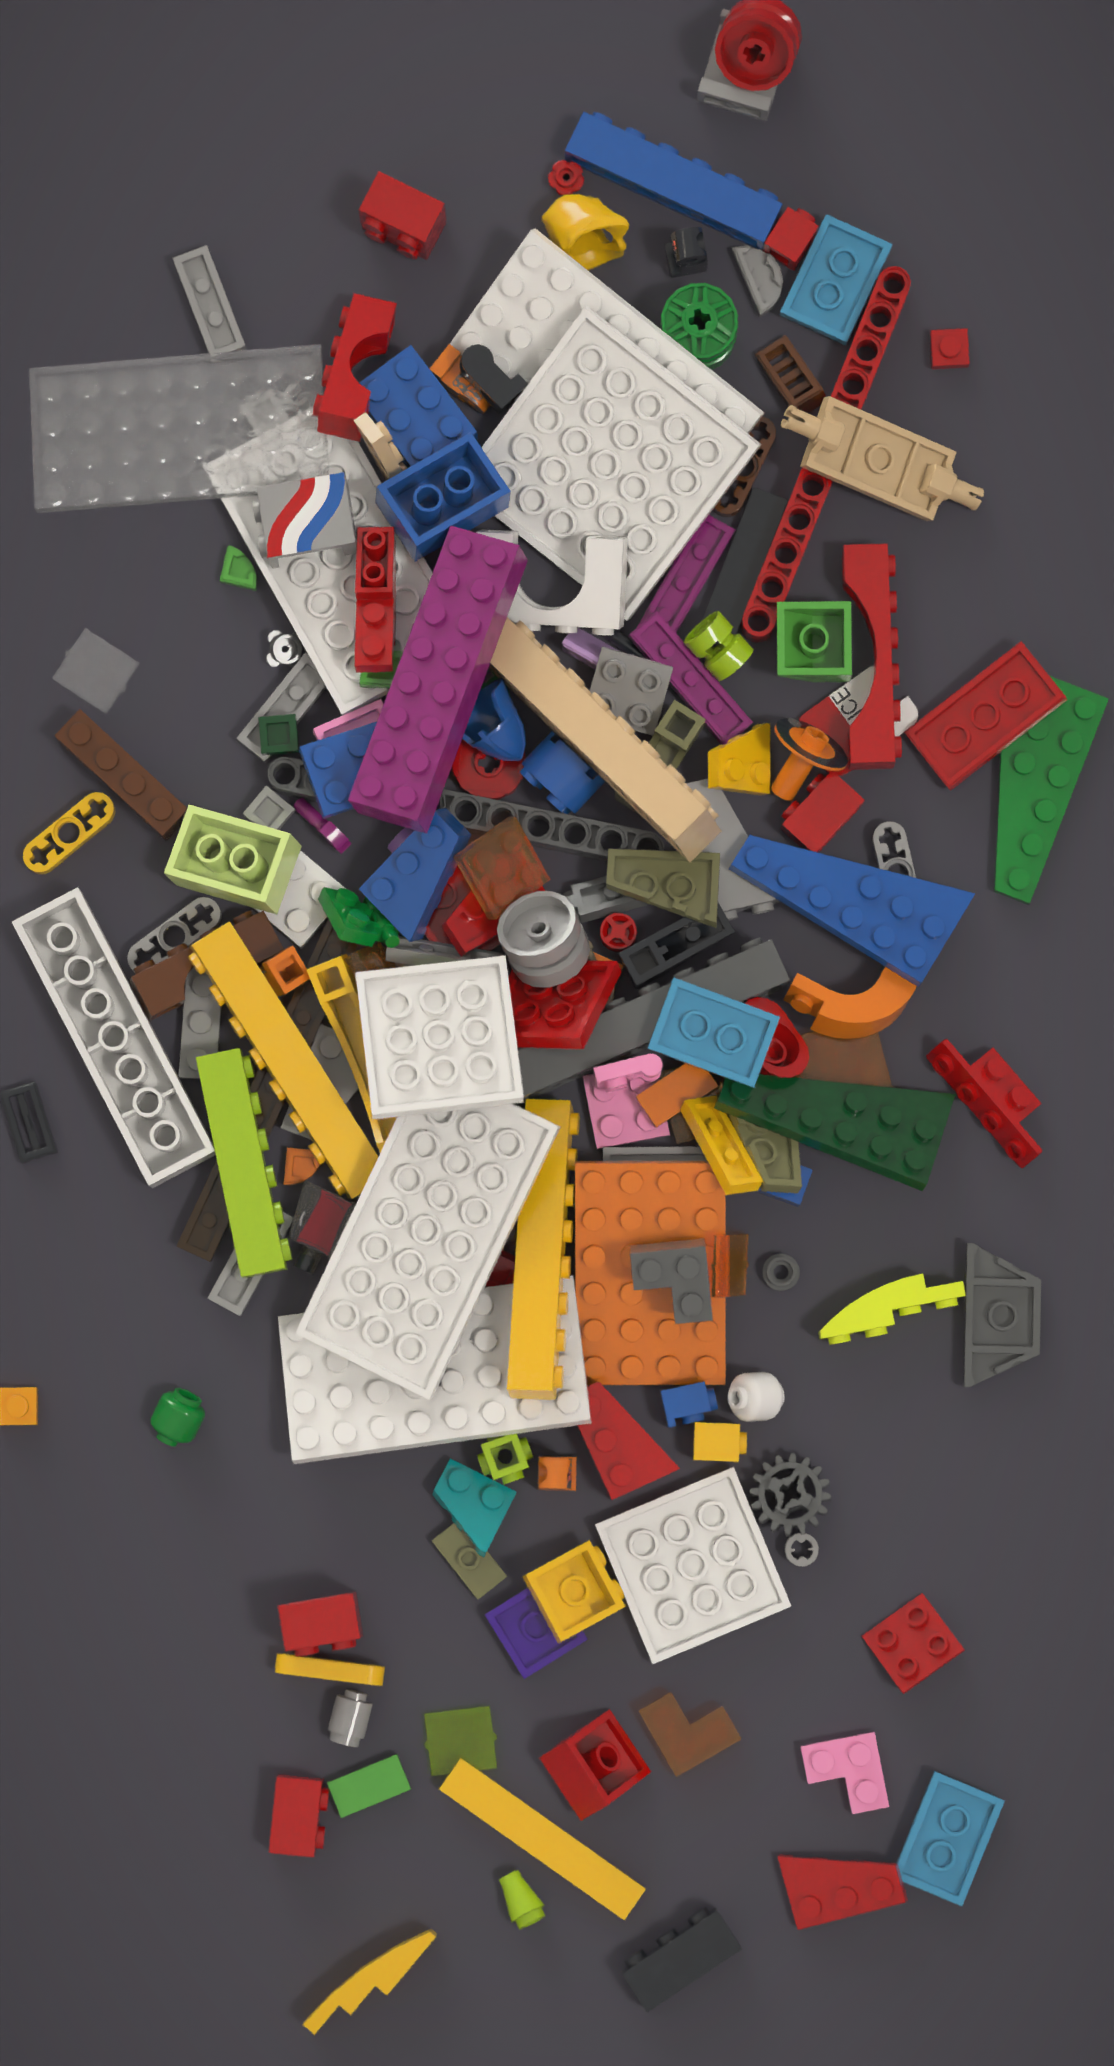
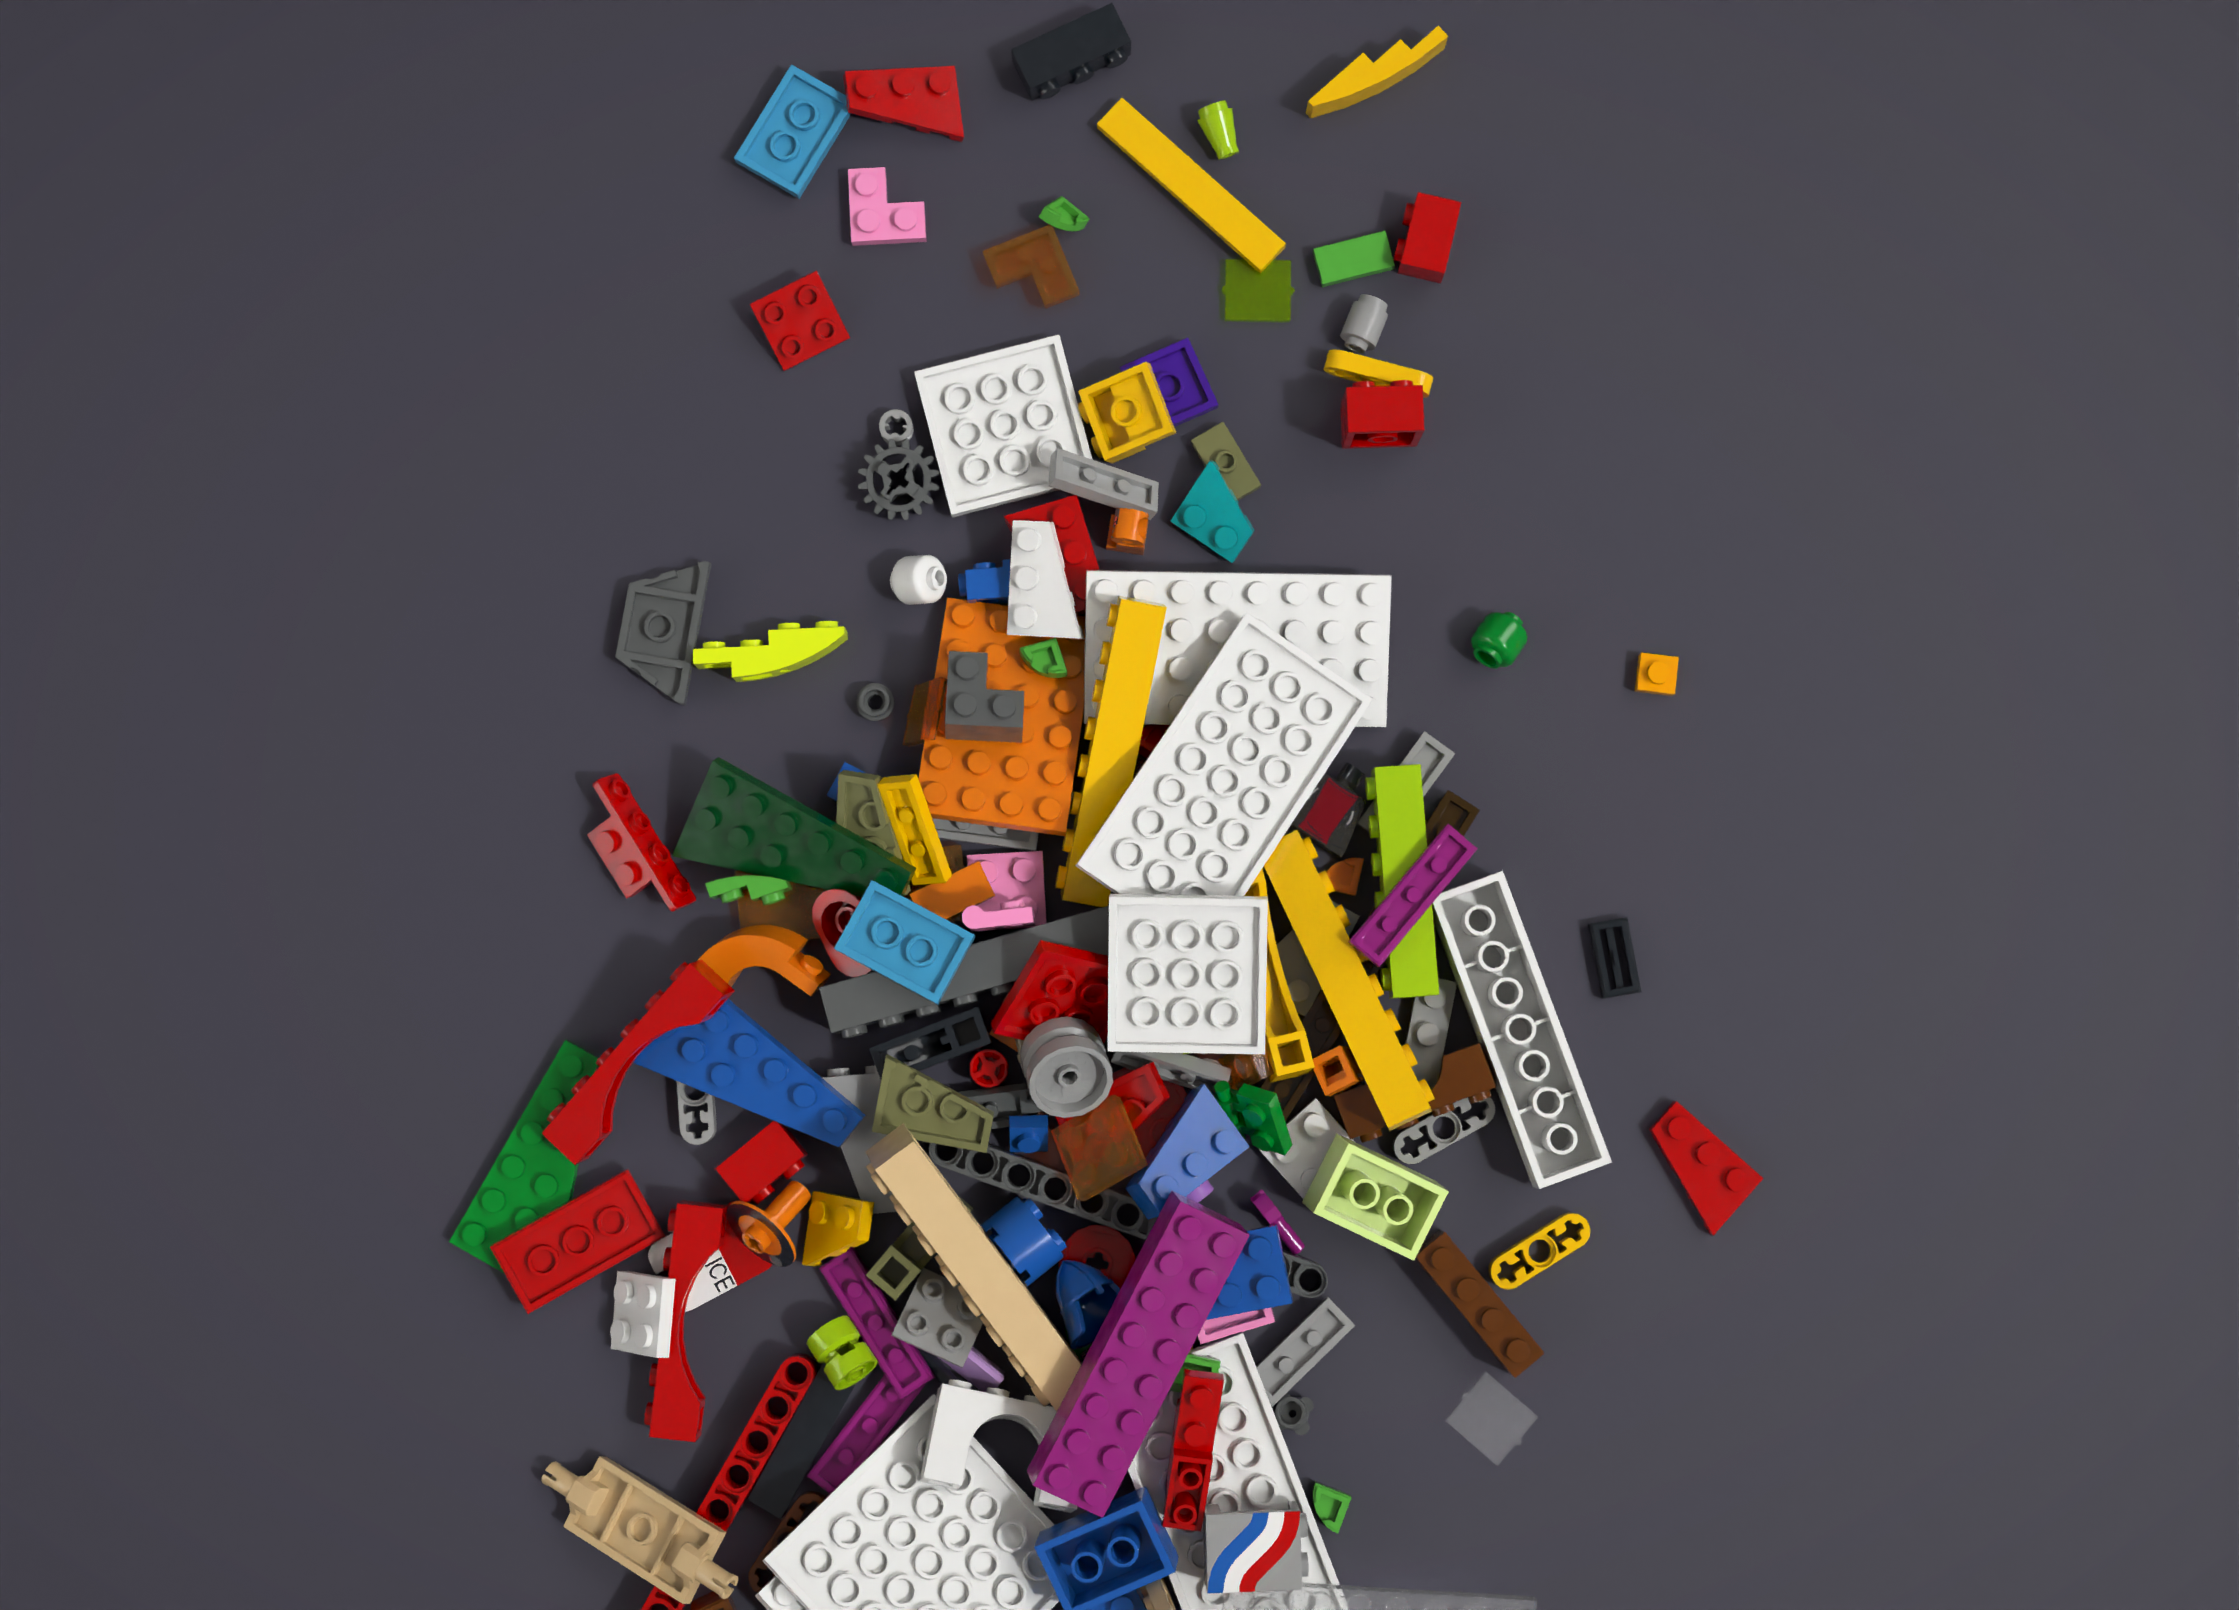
camera: 175 degrees left, 0 degrees up
(232, 1147) = (1412, 895): none -> magenta tile
(269, 809) = (1330, 1244): light grey plate -> none
(278, 734) = (1311, 1322): dark green plate -> none
(507, 1472) = (1177, 541): lime brick -> none
(571, 875) = (1028, 1133): none -> blue plate
(586, 1516) = (1102, 483): none -> light grey plate
(595, 1765) = (1129, 246): red slope -> none
(620, 1332) = (1044, 658): none -> bright green tile
(636, 1400) = (1038, 584): none -> white wing
(665, 1788) = (1064, 215): none -> bright green tile
(718, 1442) = (962, 541): yellow brick -> none
(814, 641) = (740, 1343): bright green slope -> none
(863, 1071) = (760, 888): none -> bright green slope
(912, 655) = (642, 1314): none -> white plate
(992, 830) = (588, 1116): none -> red arch

